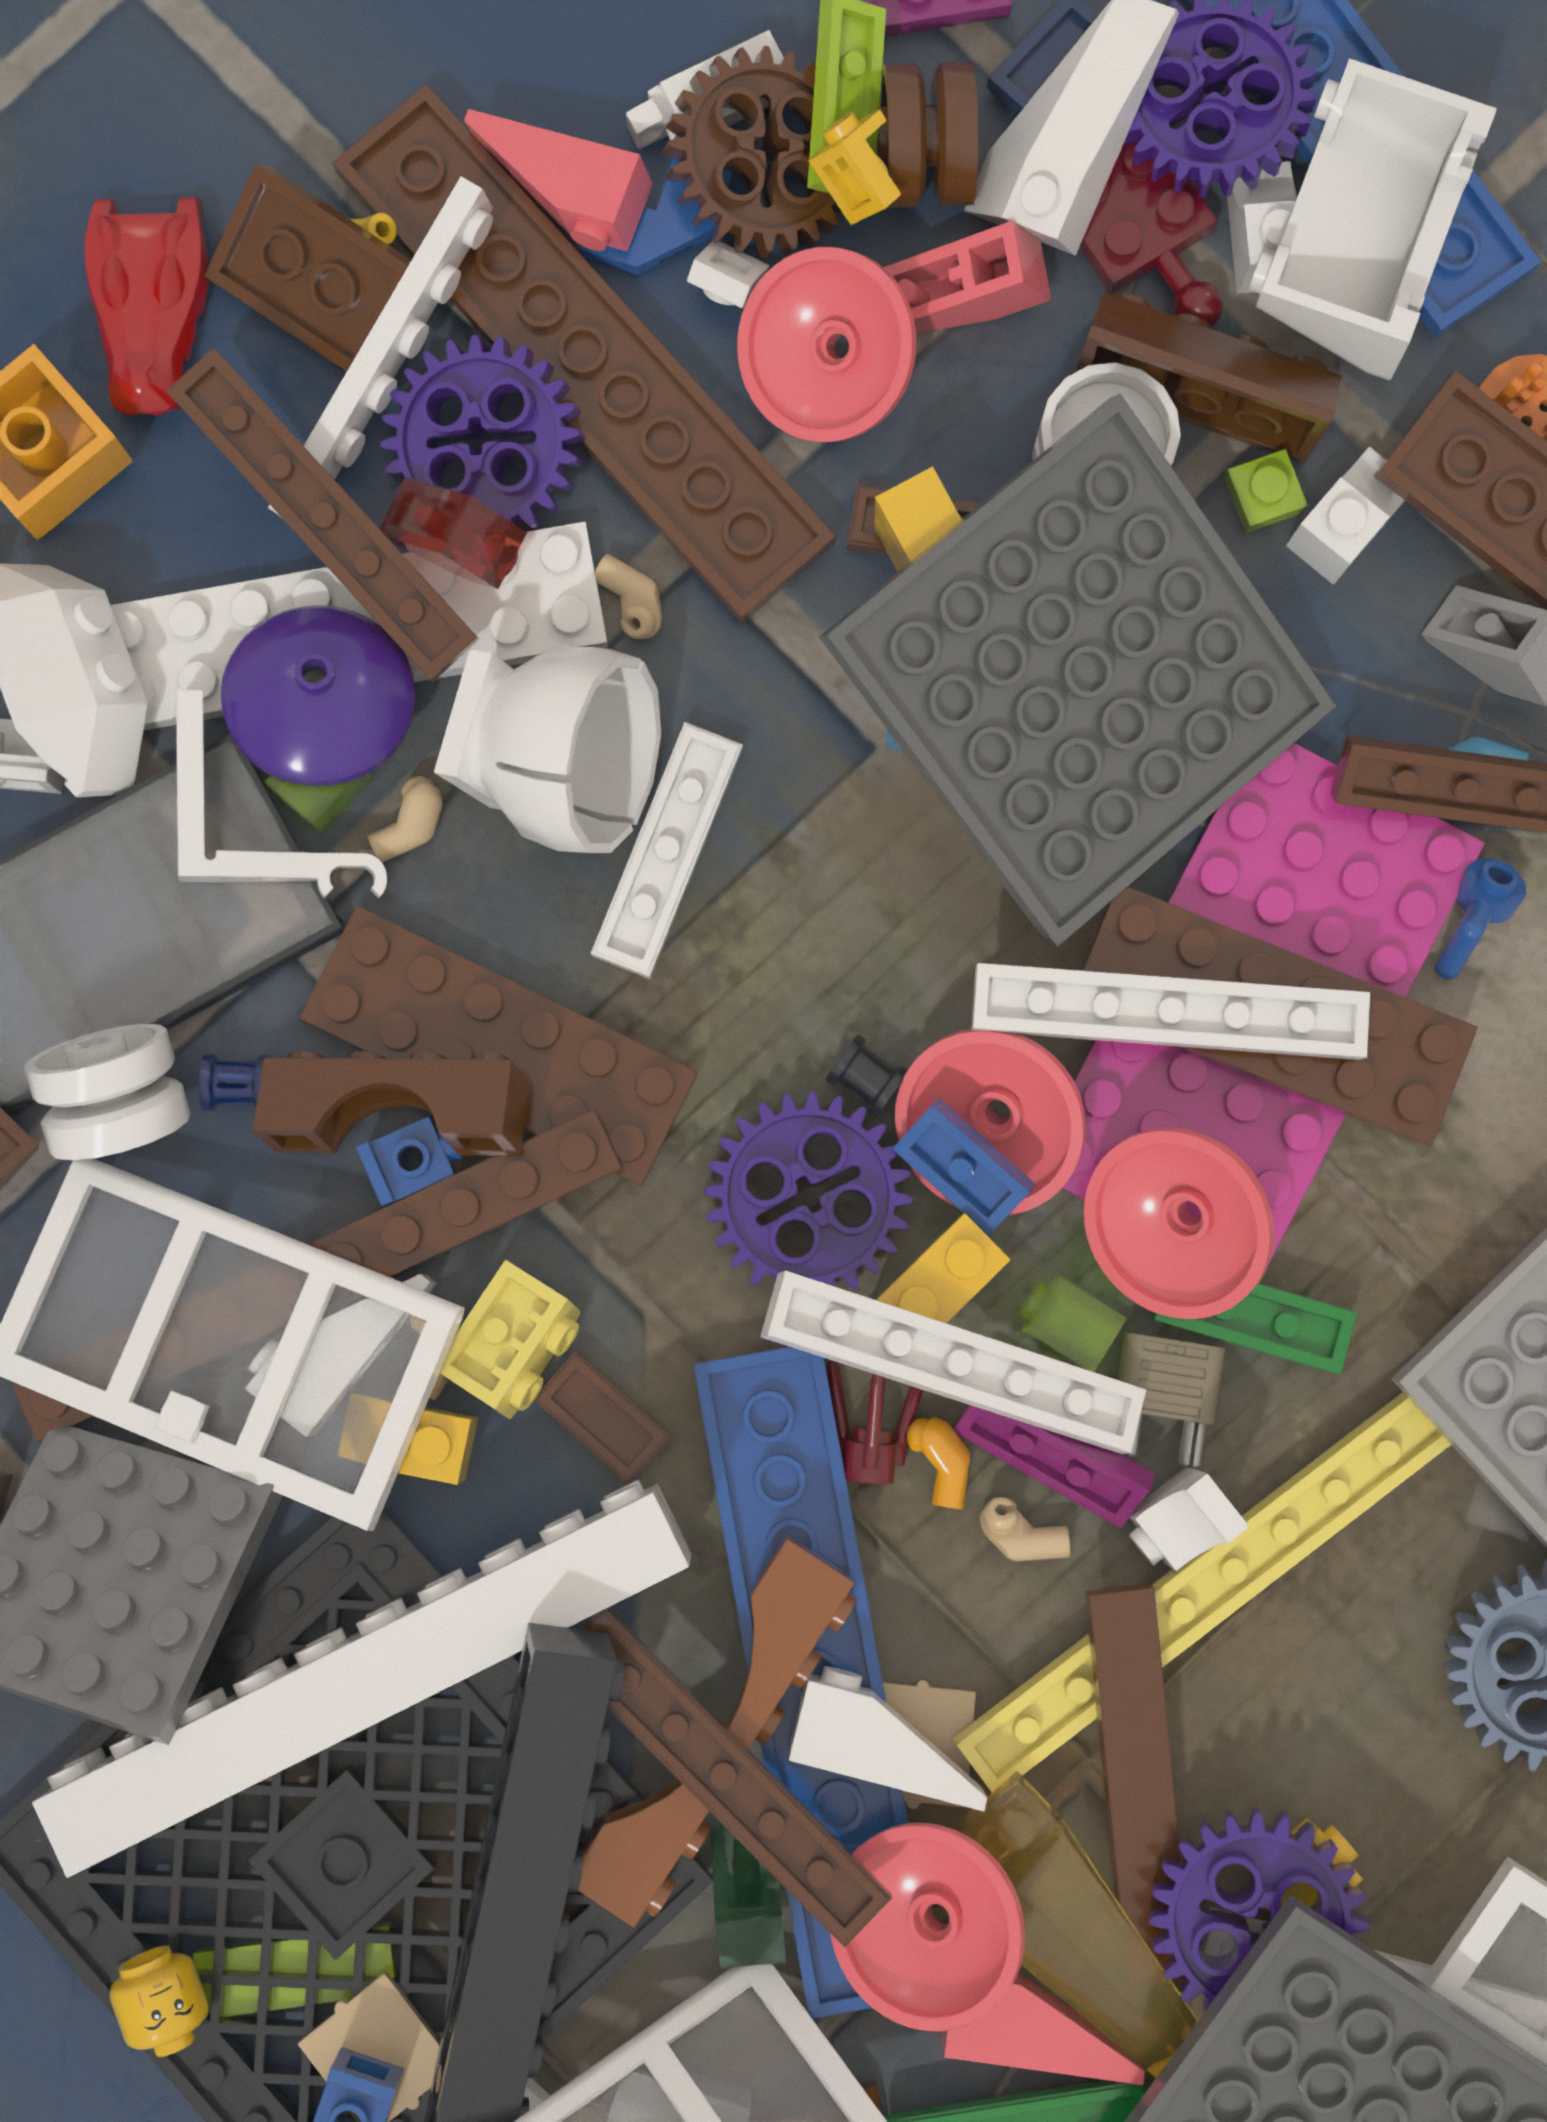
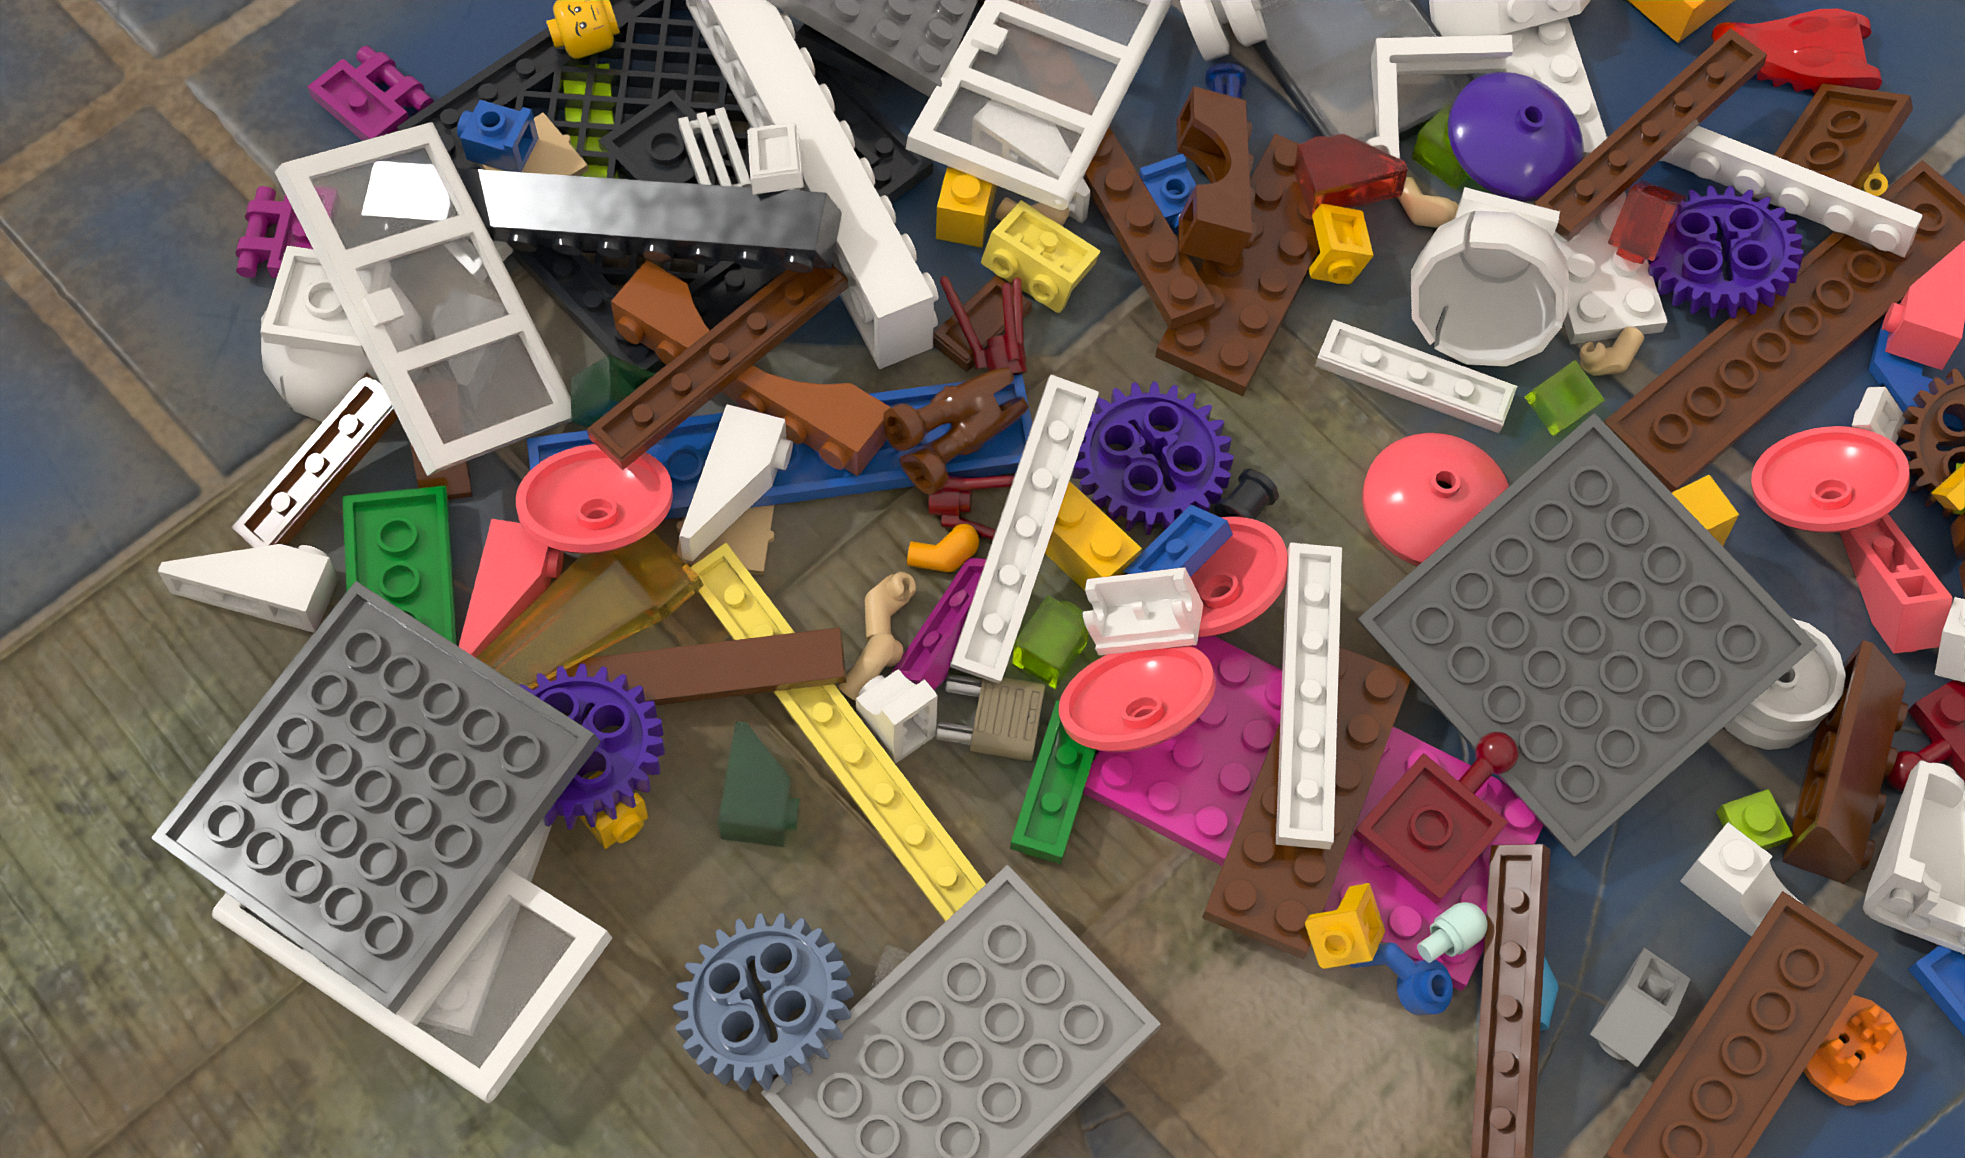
camera: 90 degrees right, 20 degrees down
(313, 1814) = (706, 125): none -> white tile
(388, 931) = (1346, 172): none -> clear red slope
(460, 1722) = (775, 158): none -> white tile
(484, 938) = (1342, 244): none -> yellow bracket
(659, 1387) = (1004, 349): none -> dark red plant
(718, 665) = (1564, 398): none -> clear neon green brick
(779, 1432) = (972, 420): none -> reddish brown piece
(834, 876) = (1407, 504): none -> coral dish
(1061, 1212) = (1143, 611): none -> white hinge
(1107, 1549) = (879, 652): none -> tan arm
(1288, 1687) = (756, 794): none -> clear green slope
(1314, 867) = (1435, 824): none -> dark red plate
(1440, 852) = (1454, 931): none -> light aqua cylinder
(1452, 968) = (1349, 932): none -> yellow bracket

